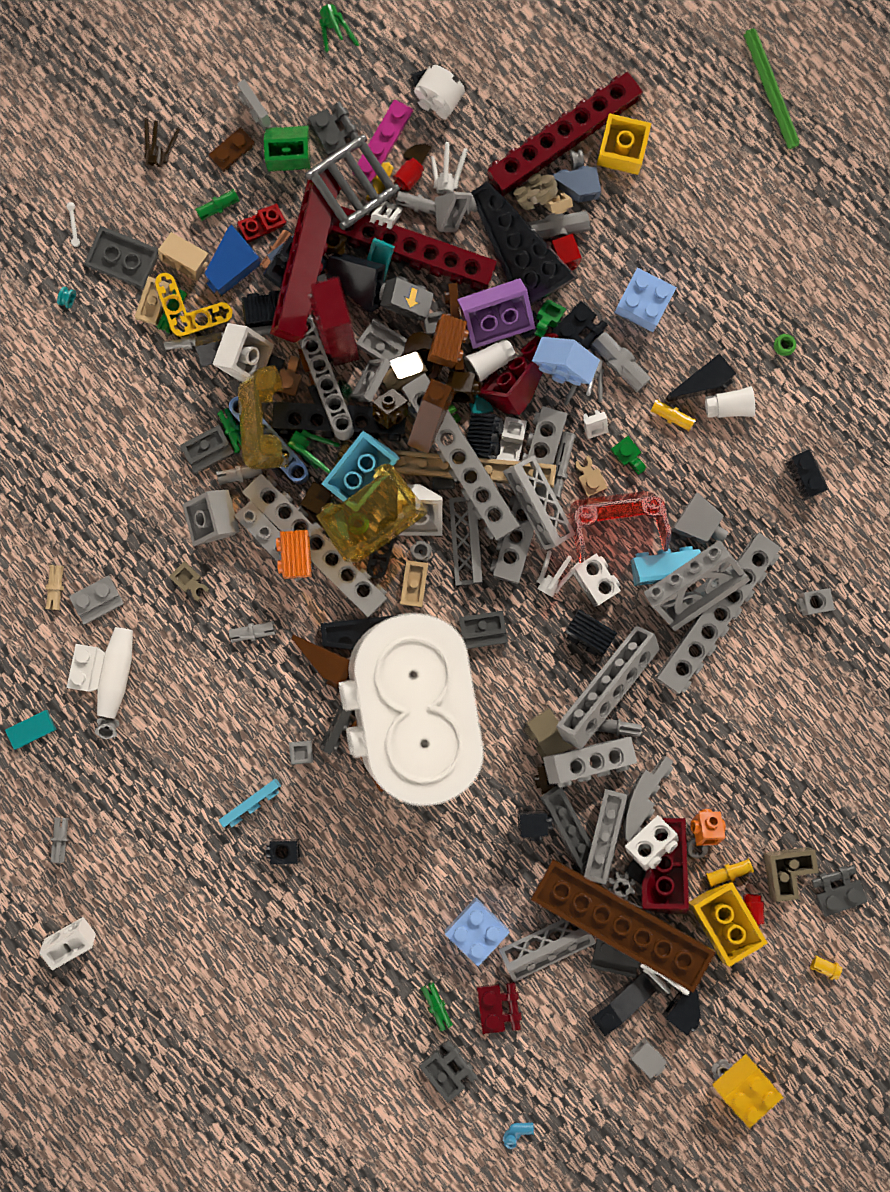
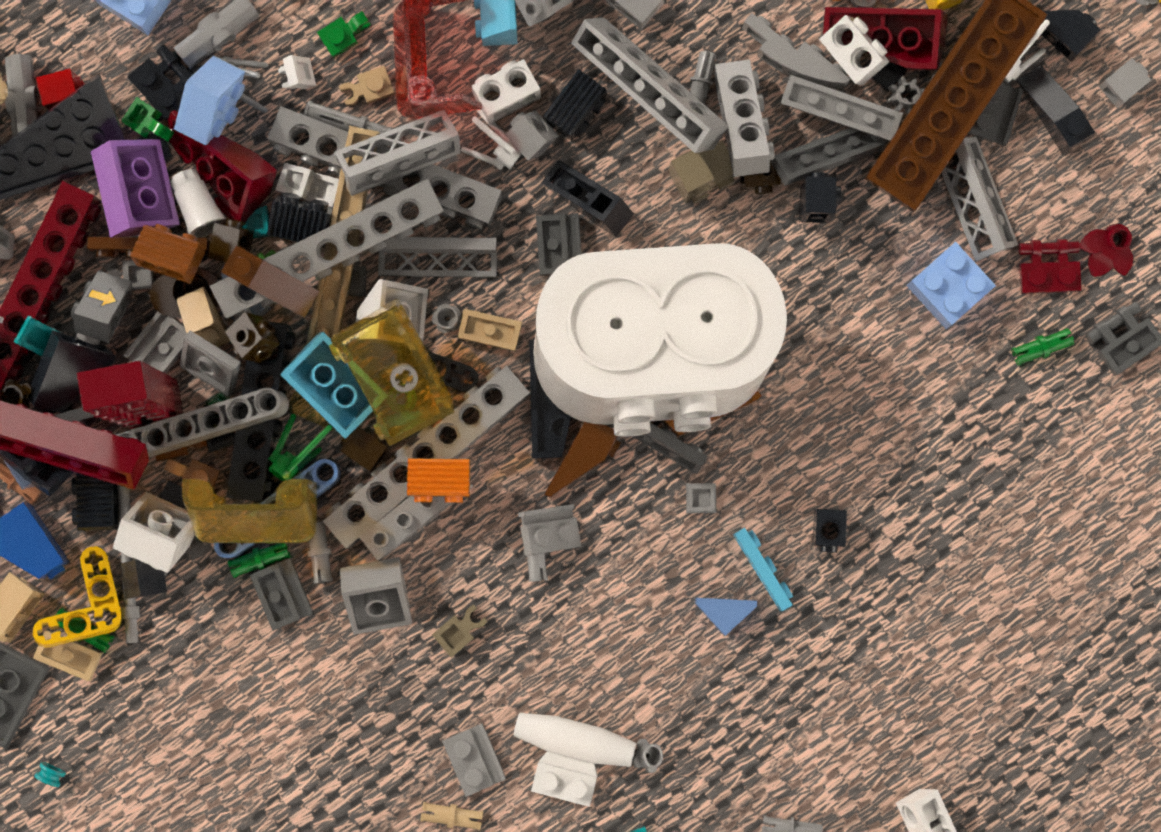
camera: 85 degrees left, 0 degrees up
(216, 777) = (725, 612): none -> medium blue slope
(267, 640) = (549, 530): none -> light grey plate
(374, 517) = (398, 369): none -> light grey bush
(512, 1052) = (1105, 253): none -> dark red plate
(520, 648) = (589, 198): none -> black slope
(564, 601) = (531, 134): none -> light grey brick

